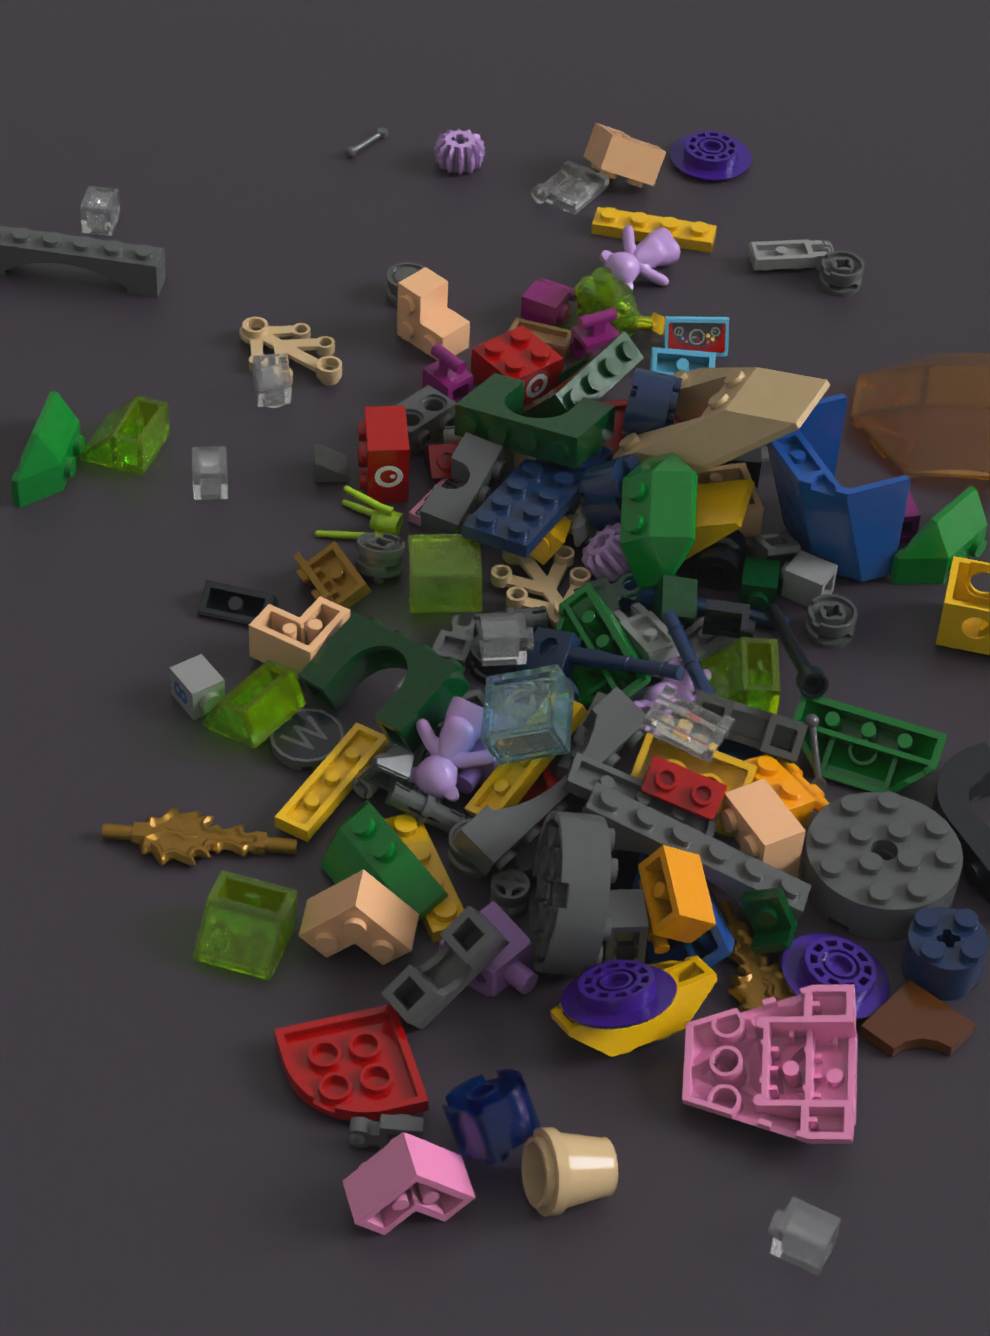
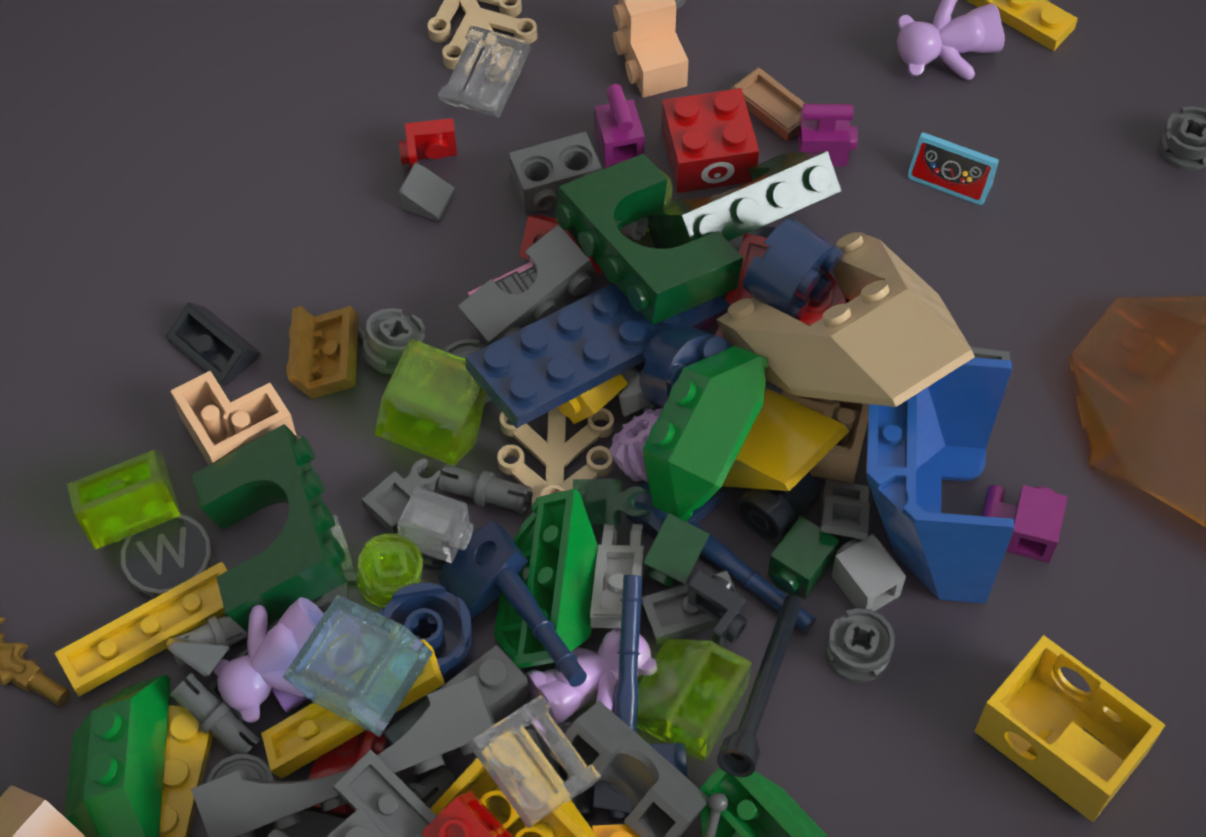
camera: 30 degrees right, 15 degrees up
(48, 454) = (136, 68): green wedge -> none
(130, 435) = (235, 82): clear neon green slope -> none
(196, 686) = (91, 439): light grey brick -> none
(209, 472) = (287, 158): clear brick -> none
(271, 380) = (426, 61): clear brick -> none
(309, 429) = (428, 141): none -> red bracket
(332, 373) = (493, 74): none -> clear plate
(382, 518) = (431, 294): lime plant -> none
(384, 453) = (476, 208): red brick -> none
(478, 668) = (386, 566): none -> clear neon green wheel
(547, 303) = (804, 61): magenta brick -> none
(604, 291) = (864, 84): clear neon green torso -> none
(673, 360) = (913, 203): medium azure slope -> none
(788, 254) = (1143, 88): light grey hinge -> none
(952, 532) = (1073, 592): green wedge -> none

